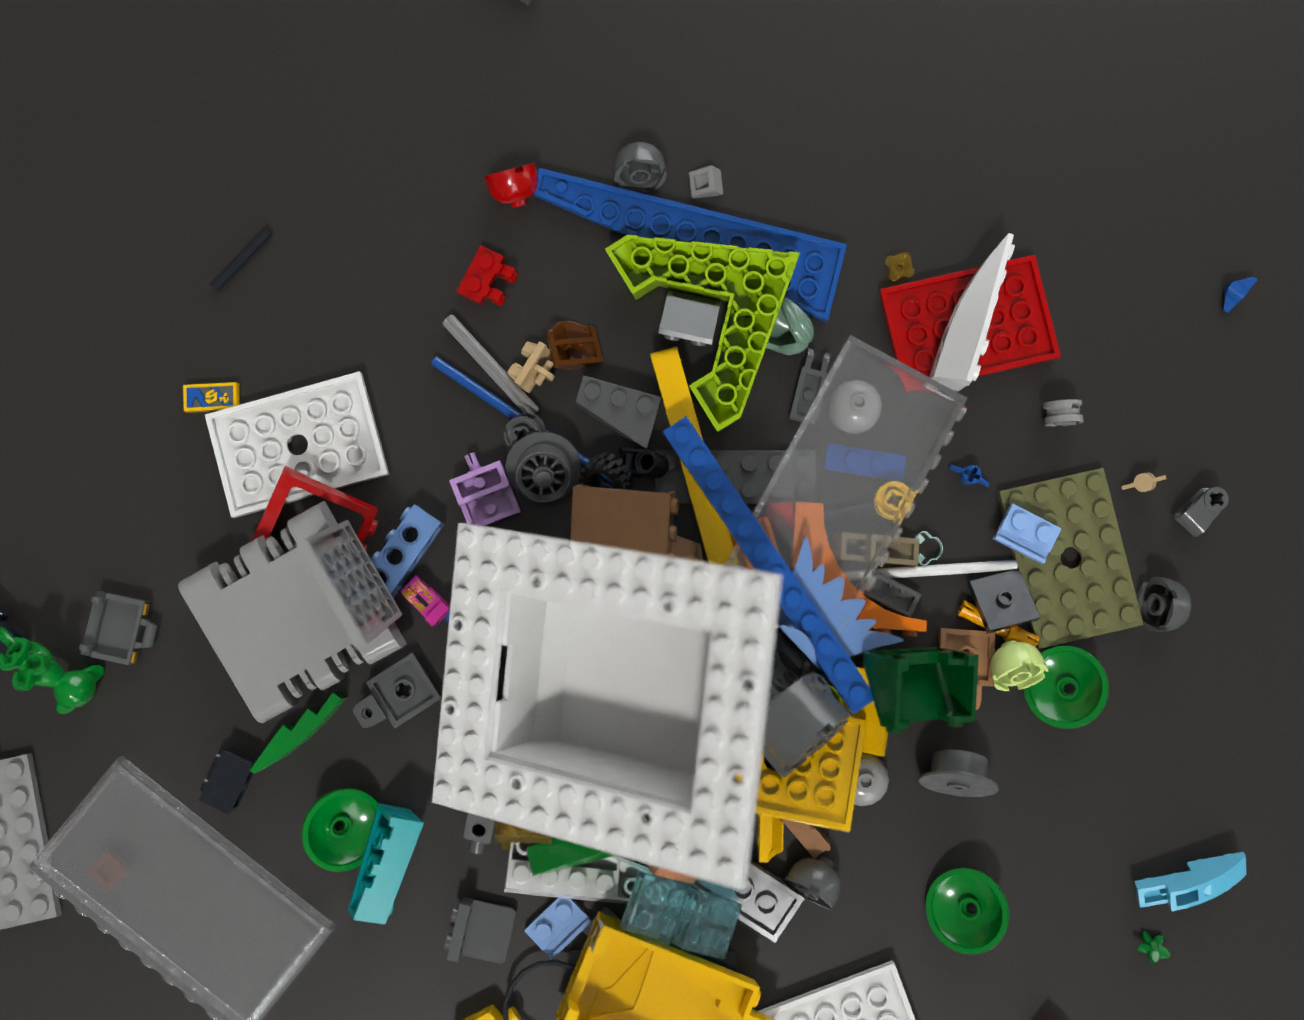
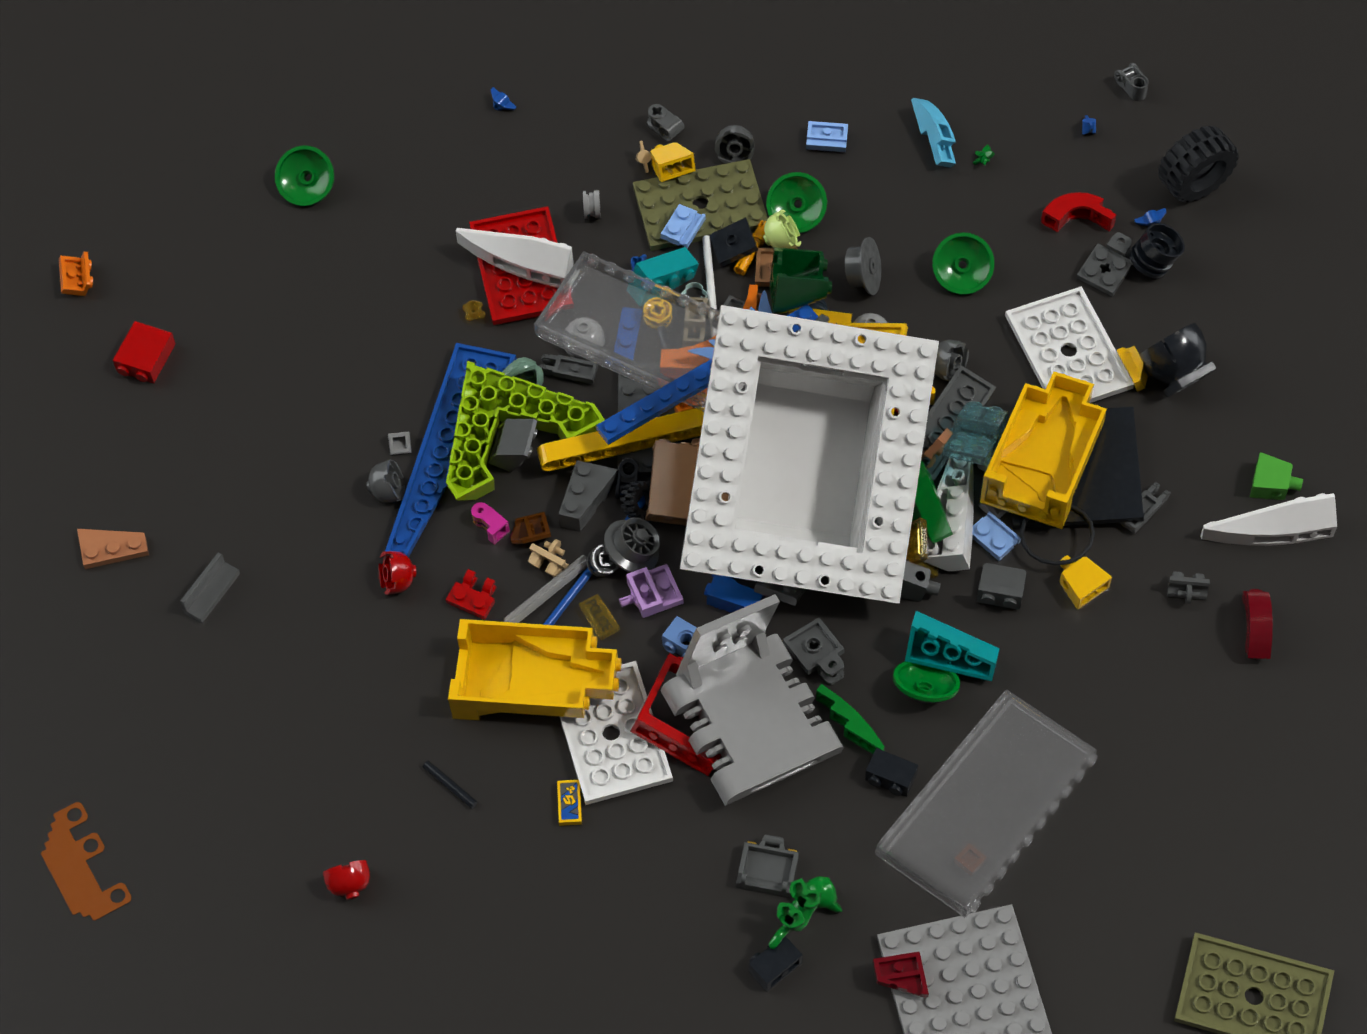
camera: 90 degrees left, 25 degrees down
(116, 146) = (347, 879): none -> red cylinder
(361, 344) = (529, 670): none -> yellow panel
(454, 429) = (599, 617): none -> clear yellow tile
(587, 294) = (491, 521): none -> dark pink leg
(954, 510) = (669, 268): none -> teal wedge
(1102, 26) = (292, 173): none -> green dish
(1134, 518) = (672, 161): none -> yellow torso
(1183, 731) = (827, 136): none -> light blue plate

